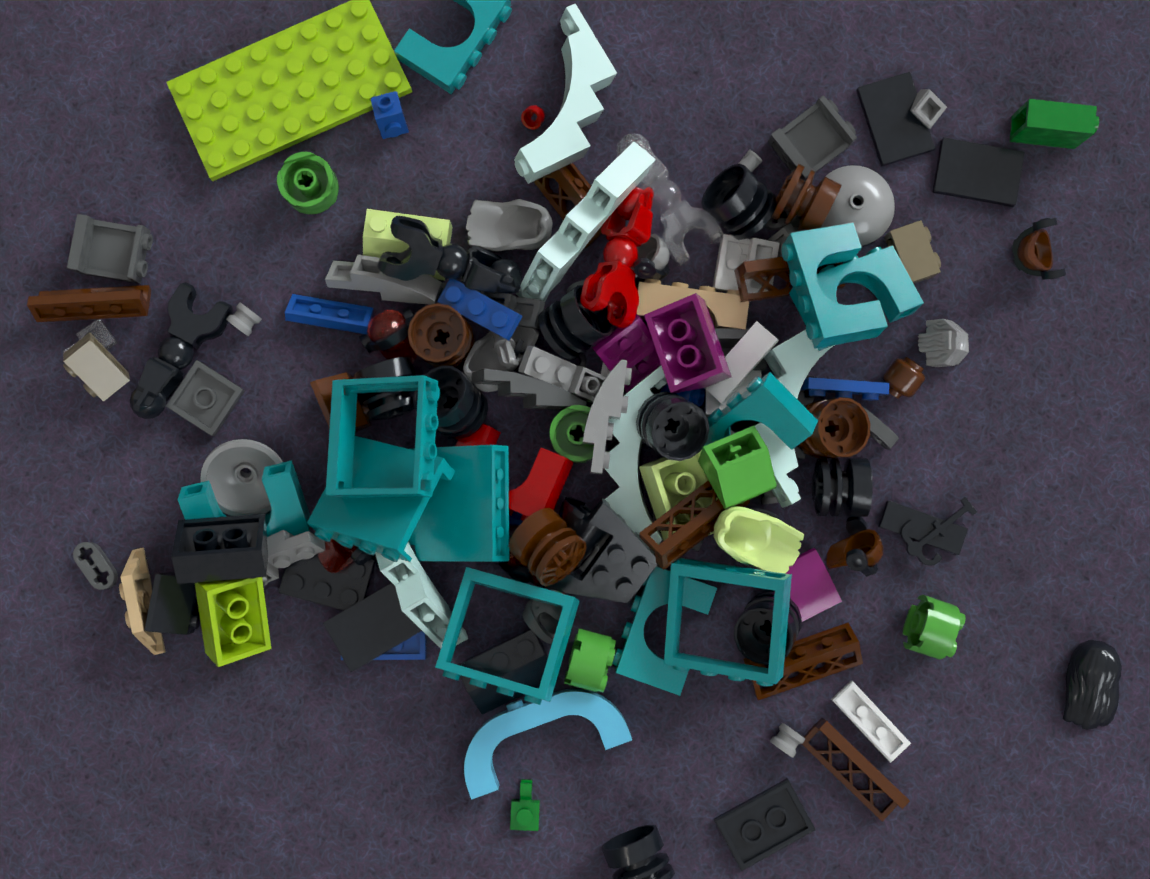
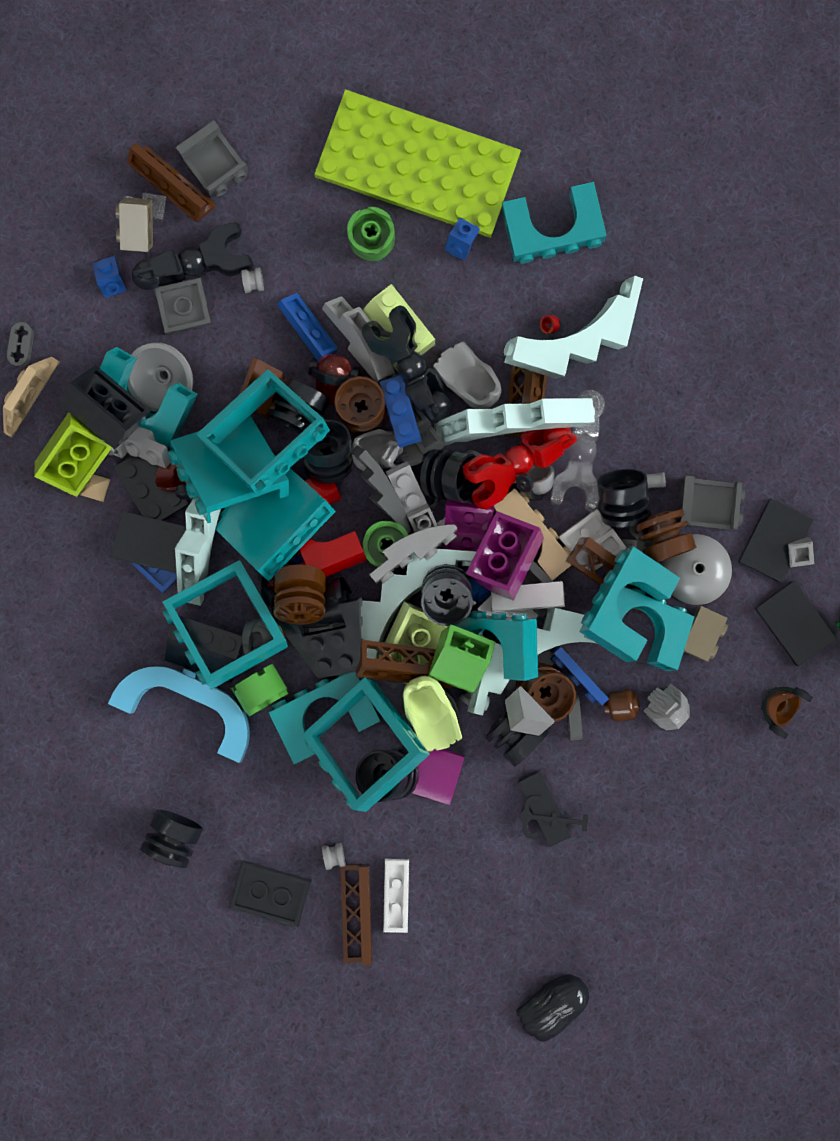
camera: 45 degrees right, 0 degrees up
(116, 434) = (108, 277): none -> blue bracket
(172, 606) = (42, 413): black slope -> none
(281, 625) = (96, 488): none -> tan slope
(525, 810) = (134, 743): green plate -> none
(807, 653) = (393, 815): reddish brown fence -> none
(837, 461) = (526, 714): none -> light grey slope
(859, 551) = (489, 784): reddish brown cap -> none
(933, 627) = (489, 874): bright green brick -> none

